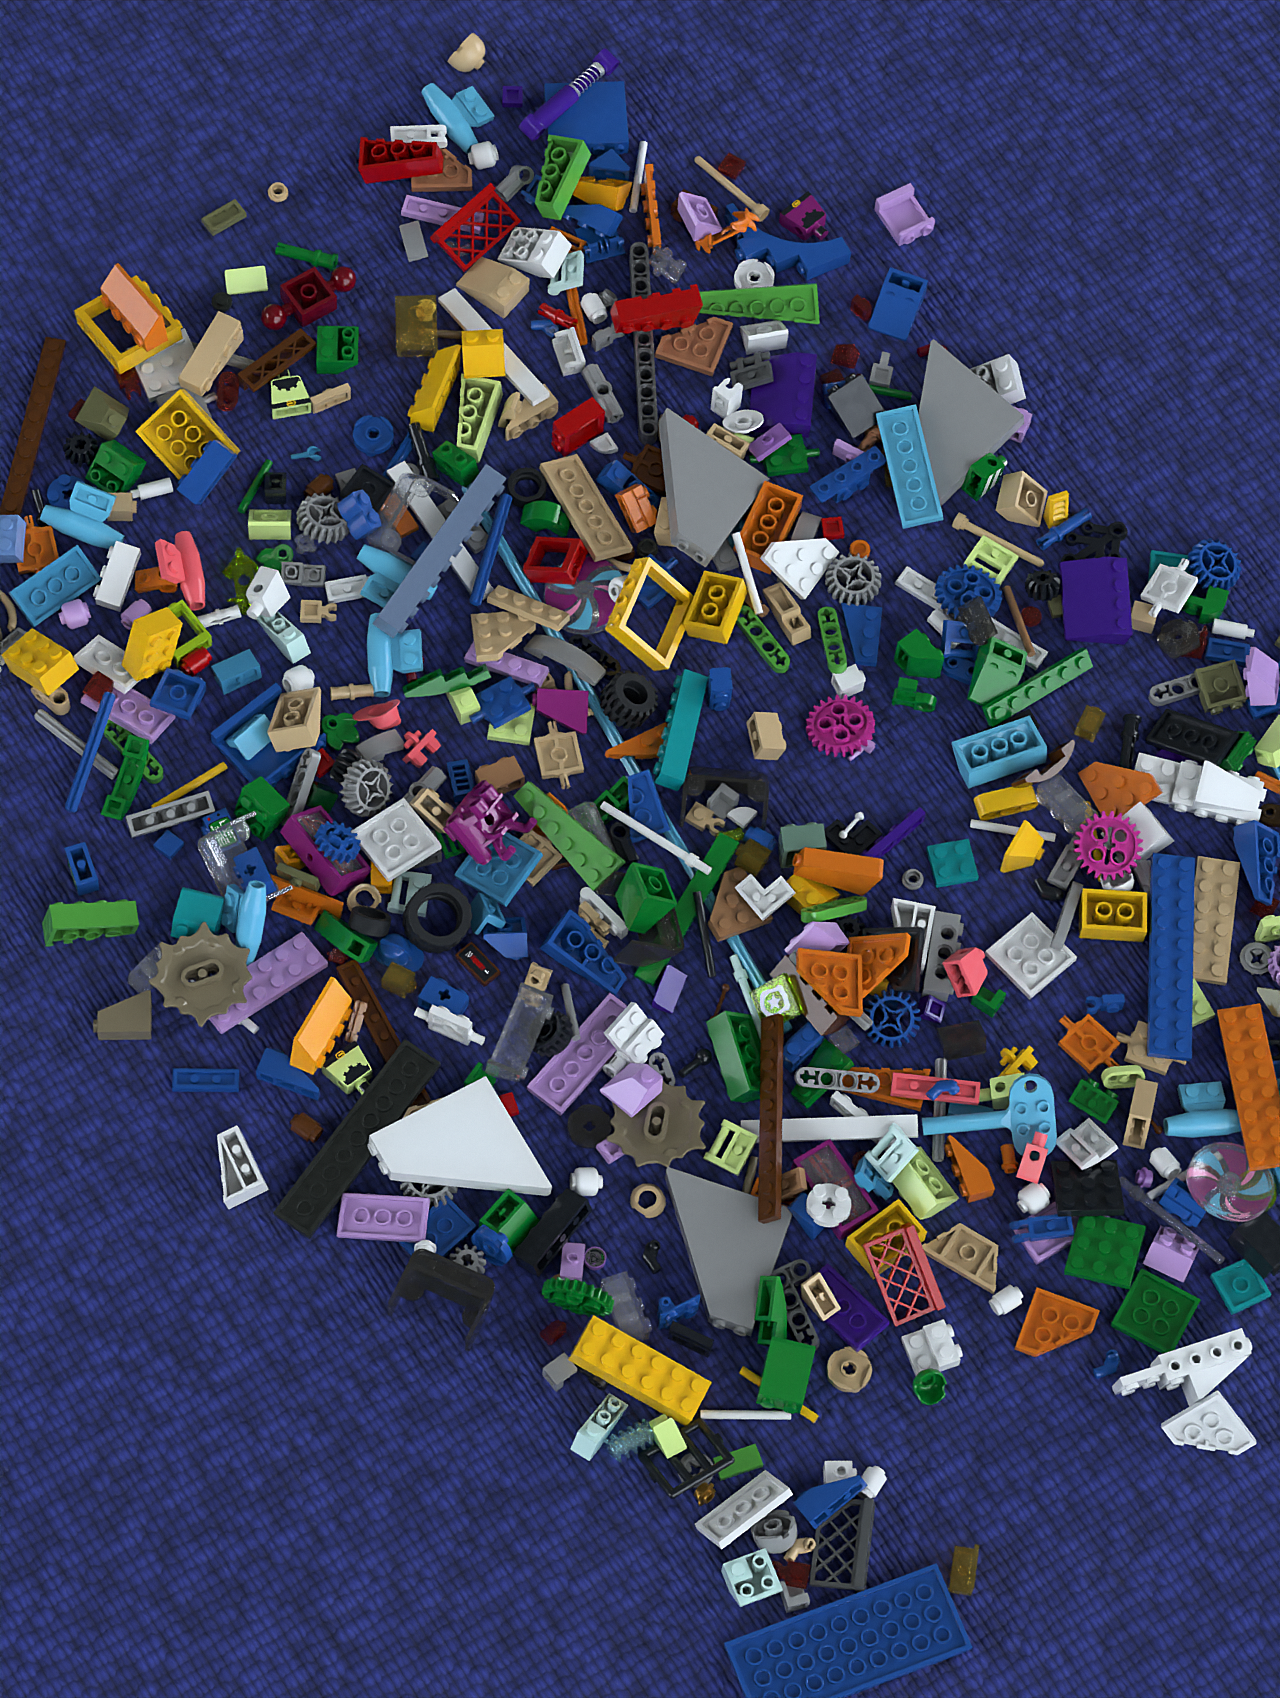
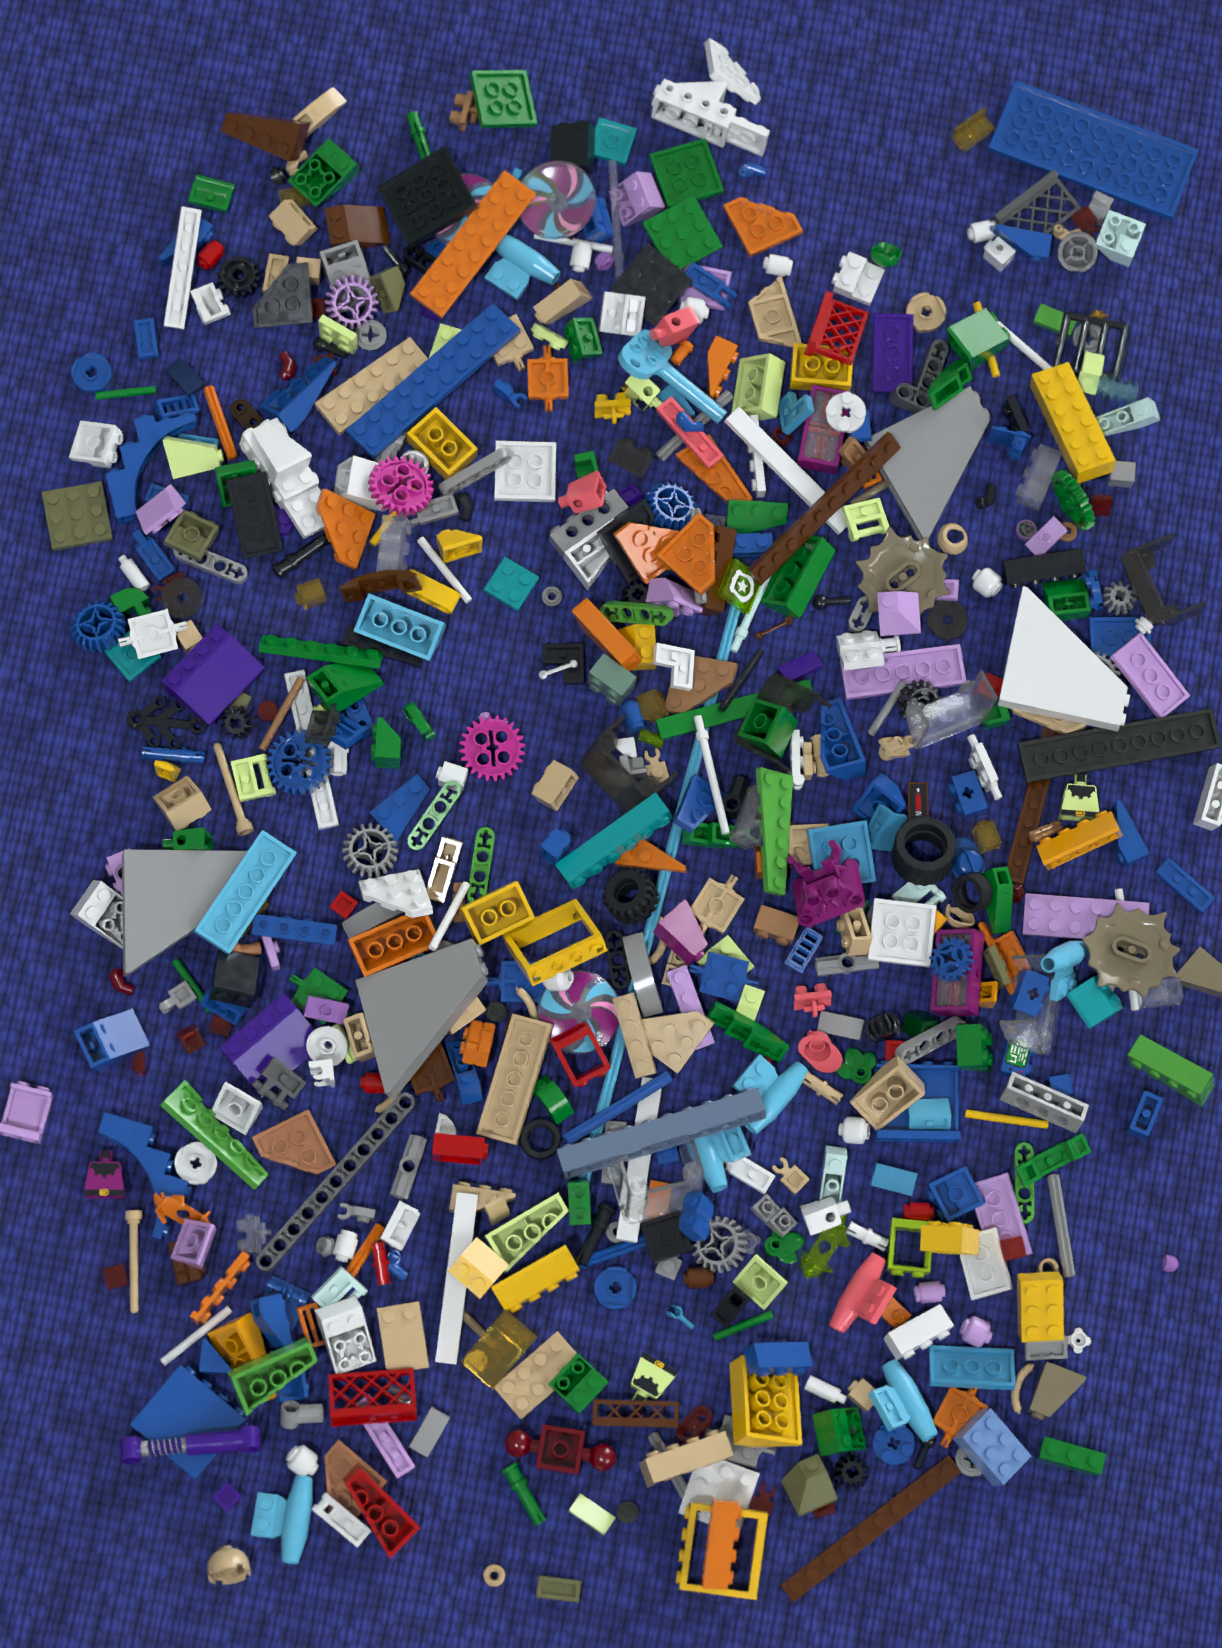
camera: 140 degrees left, 10 degrees up
(90, 752) = (1061, 1203): blue axle -> none
(306, 1127) = (1145, 787): reddish brown brick -> none
(330, 398) = (619, 1348): tan plate -> none
(366, 788) = (885, 994): light grey gear -> none
(375, 338) = (528, 1382): none -> tan plate
(657, 311) = (310, 1185): red wedge -> none
(743, 1509) = (1084, 282): white plate -> none
(819, 1297) = (906, 366): tan slope -> none
(837, 1076) = (755, 493): light grey beam -> none
(859, 546) = (339, 873): orange tile -> none
(895, 1157) = (767, 404): light aqua plate -> none
(896, 834) = (545, 635): dark purple plate -> none

